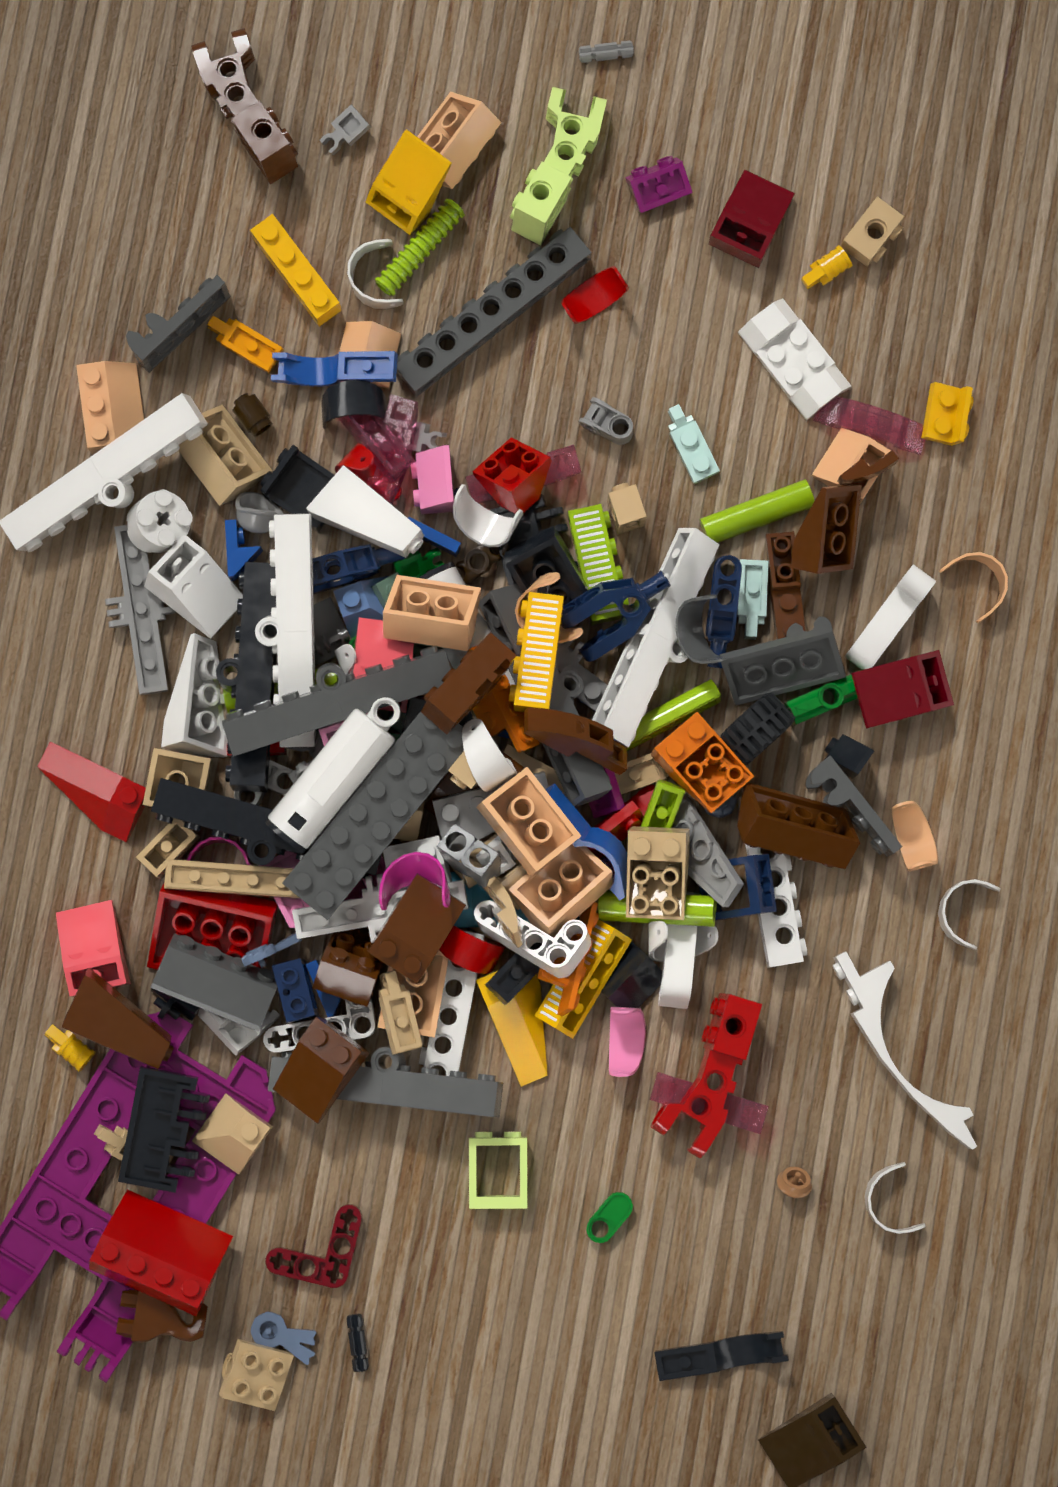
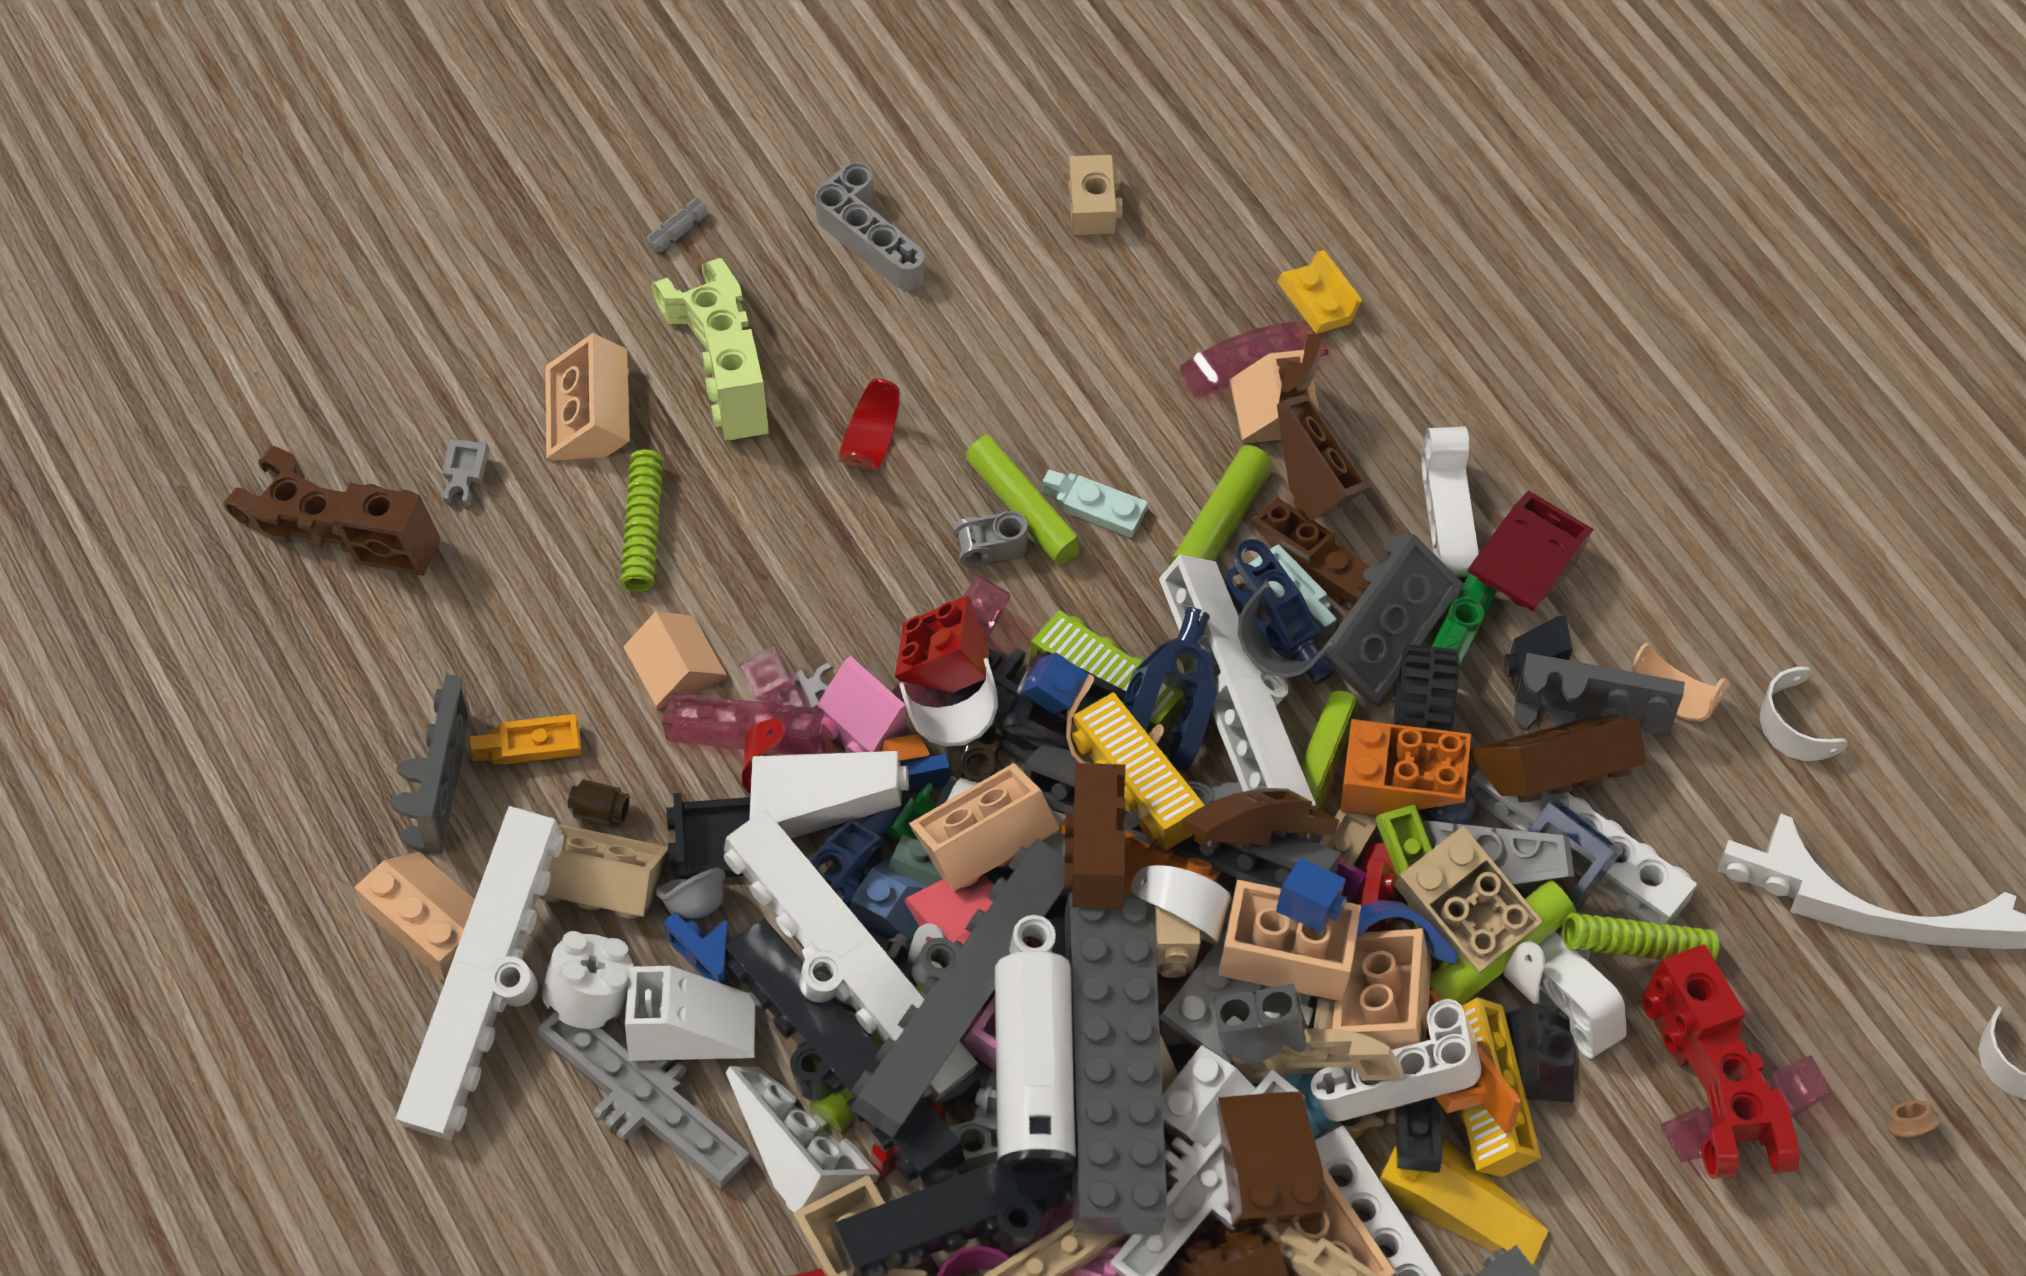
camera: 40 degrees left, 25 degrees down
(295, 270) = (525, 631): yellow brick -> none
(327, 371) = (663, 676): blue piece -> none
(353, 398) = (693, 701): black piece -> none
(356, 255) = (614, 604): white piece -> none
(403, 871) = (1221, 1079): dark pink piece -> none
(408, 183) = (580, 454): yellow slope -> none
(439, 521) = (908, 747): none -> orange slope
(471, 952) = (1350, 1141): red piece -> none
(538, 561) = (1054, 683): none -> blue brick
(553, 813) = (1311, 895): none -> blue brick
(562, 242) = (811, 414): dark grey brick -> none
(626, 508) = (1090, 592): tan brick -> none
(626, 1040) = (1590, 1117): bright pink piece -> none
(647, 411) = (1022, 497): none -> lime brick
(659, 183) = (841, 297): magenta bracket -> none
(716, 153) = (846, 215): none -> light grey beam
(740, 967) = (1633, 937): none -> lime piece
(751, 218) = (964, 266): dark red slope -> none
(794, 358) = (1122, 356): white piece -> none
(827, 267) = (1078, 253): yellow hinge -> none
(995, 566) = (1505, 388): light nougat piece -> none

